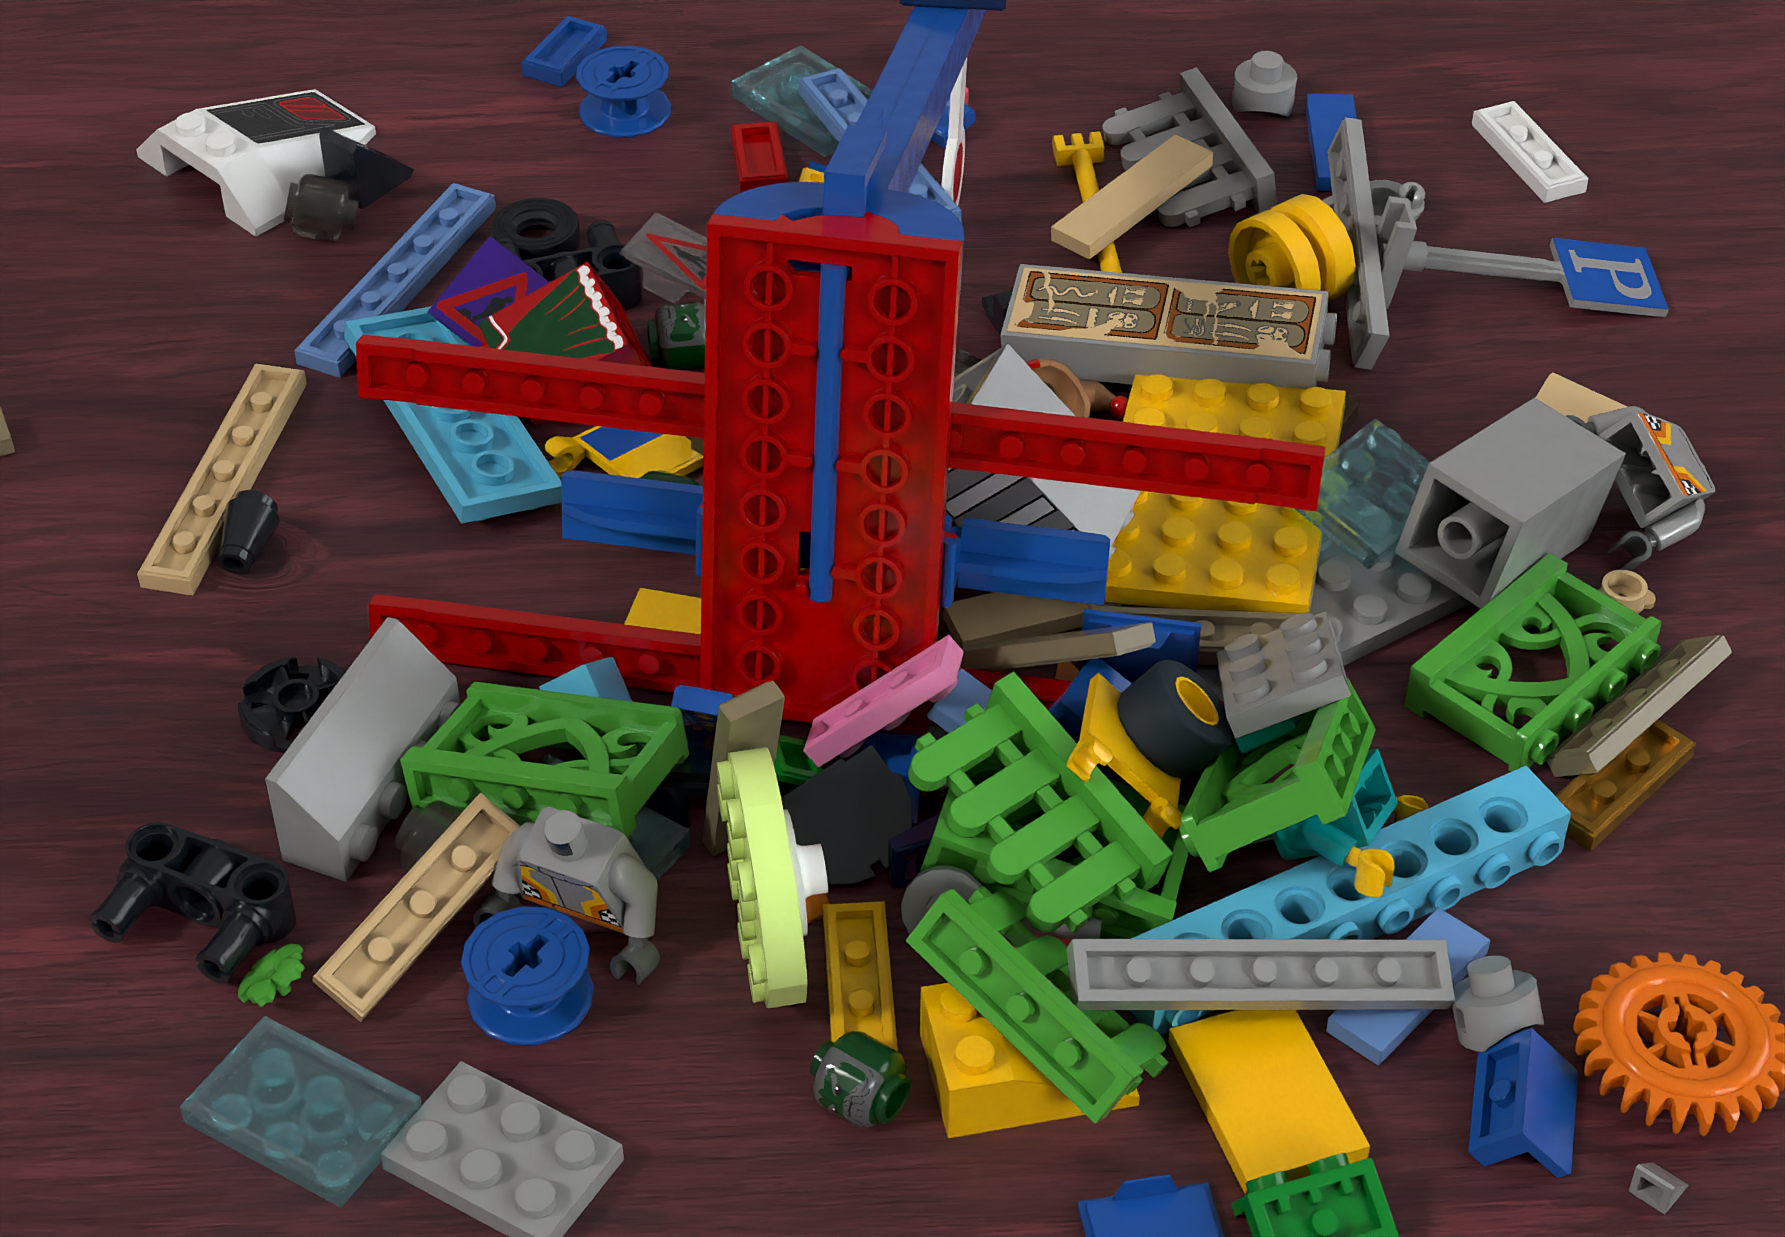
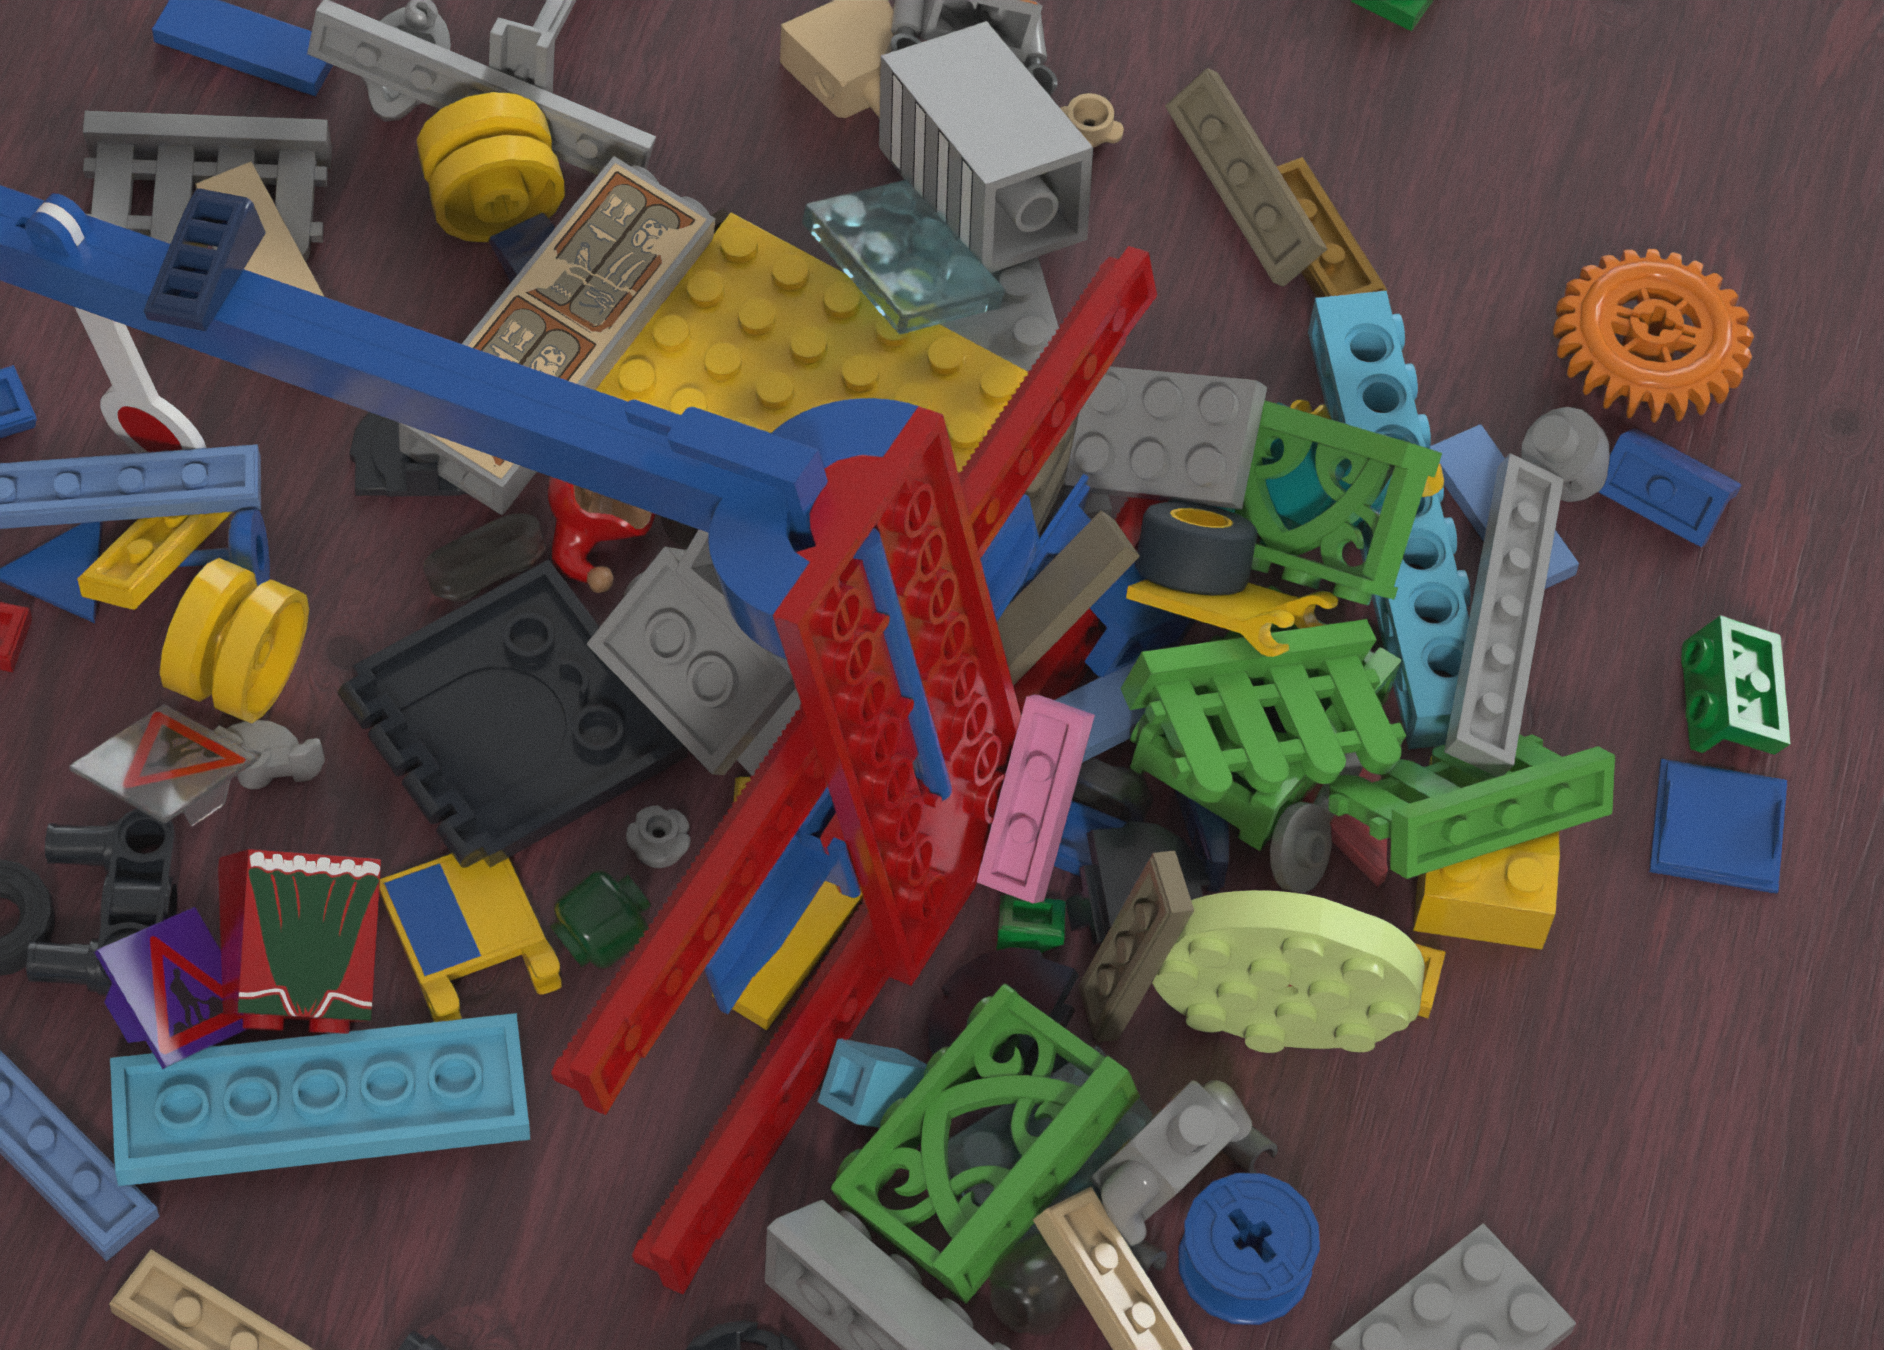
camera: 75 degrees left, 15 degrees up
(678, 336) = (295, 810): dark green head -> none
(698, 704) = (966, 966): blue tile -> none
(860, 1079) = (1480, 992): dark green head -> none
(1264, 85) = (123, 60): light grey piece -> none
(1266, 1093) = (1606, 674): yellow tile -> none
(1541, 597) = (1200, 201): bright green fence -> none
(1656, 1186) = (1772, 426): light grey piece -> none

